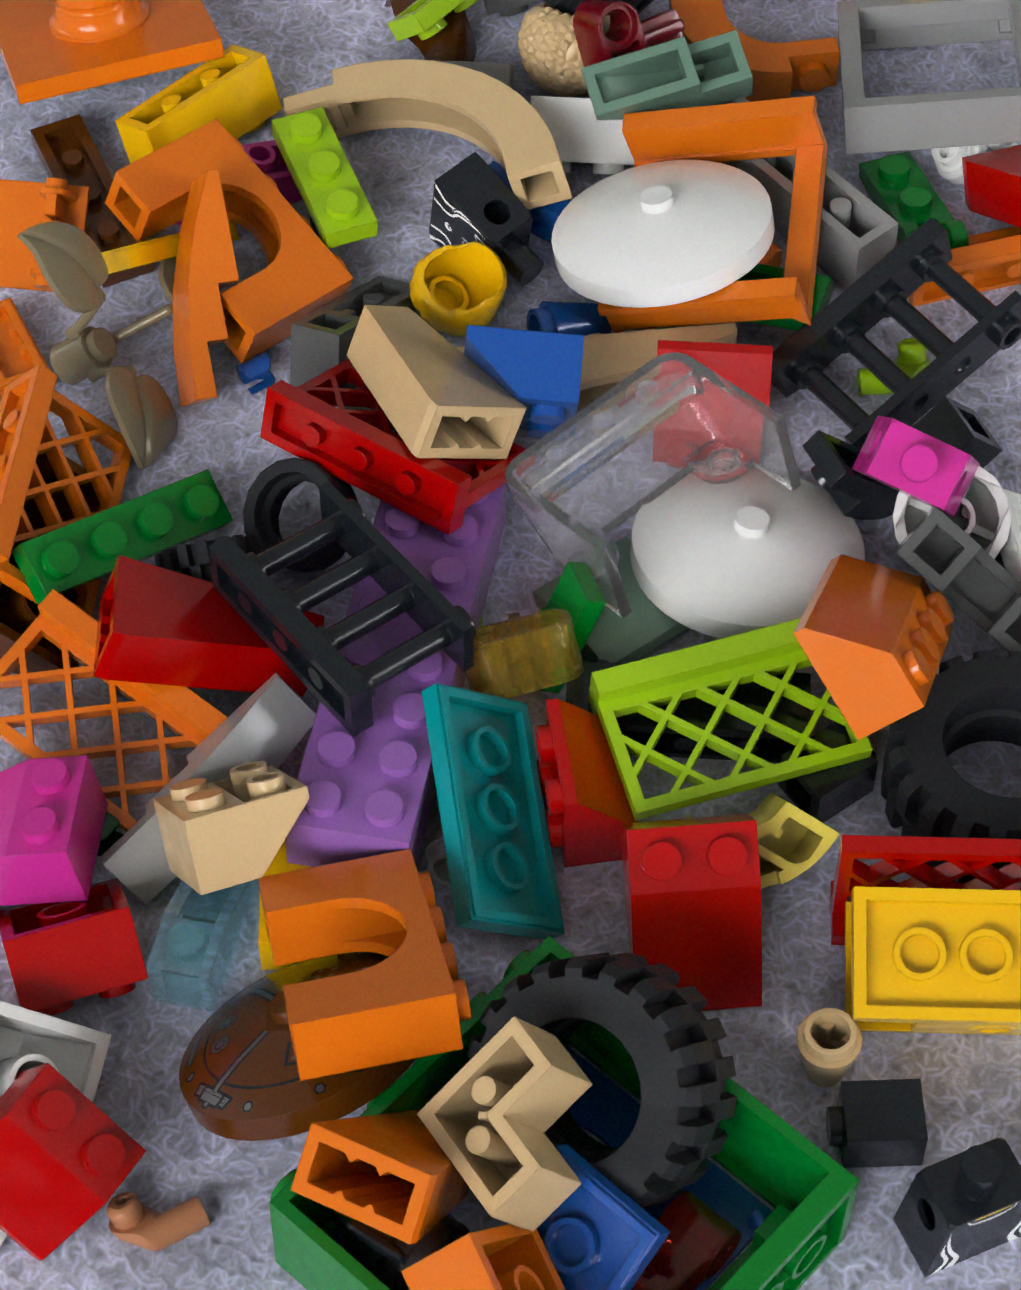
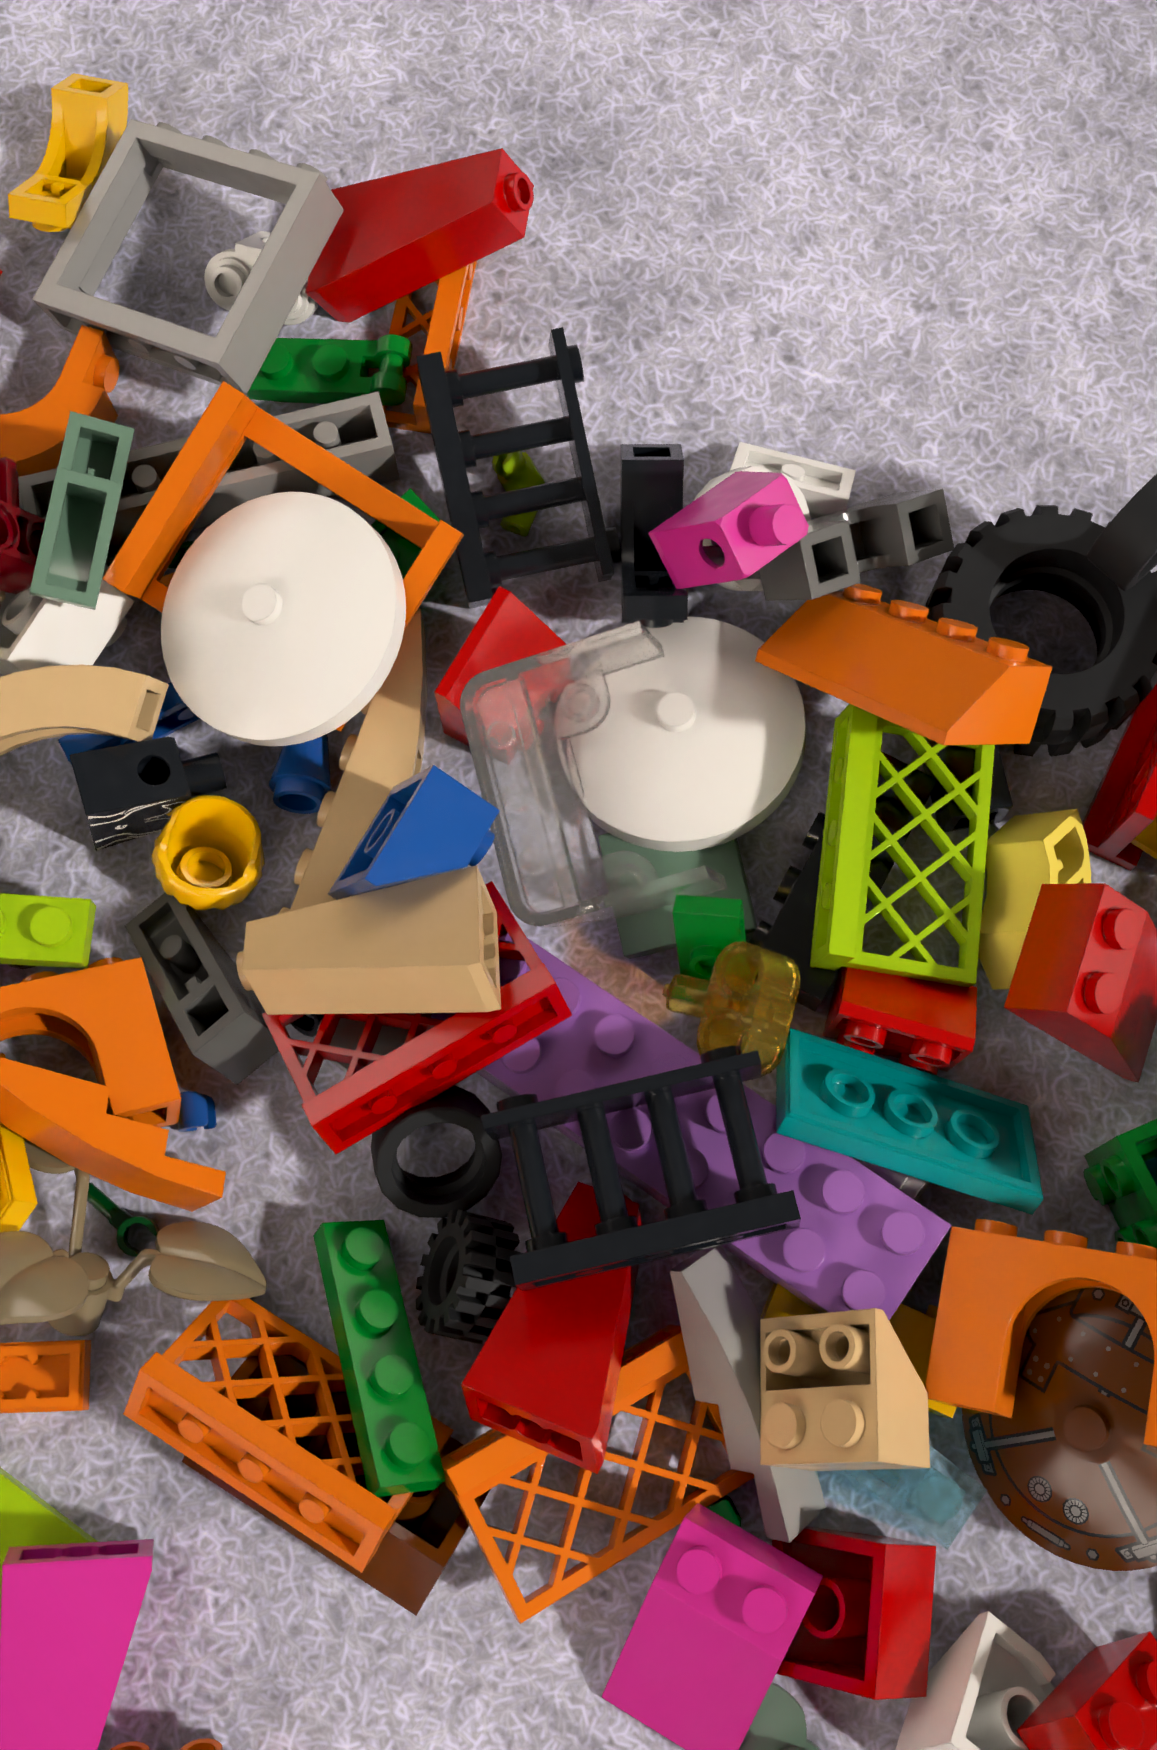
camera: 65 degrees left, 20 degrees up
(152, 364) = (119, 1218): none -> dark green hand

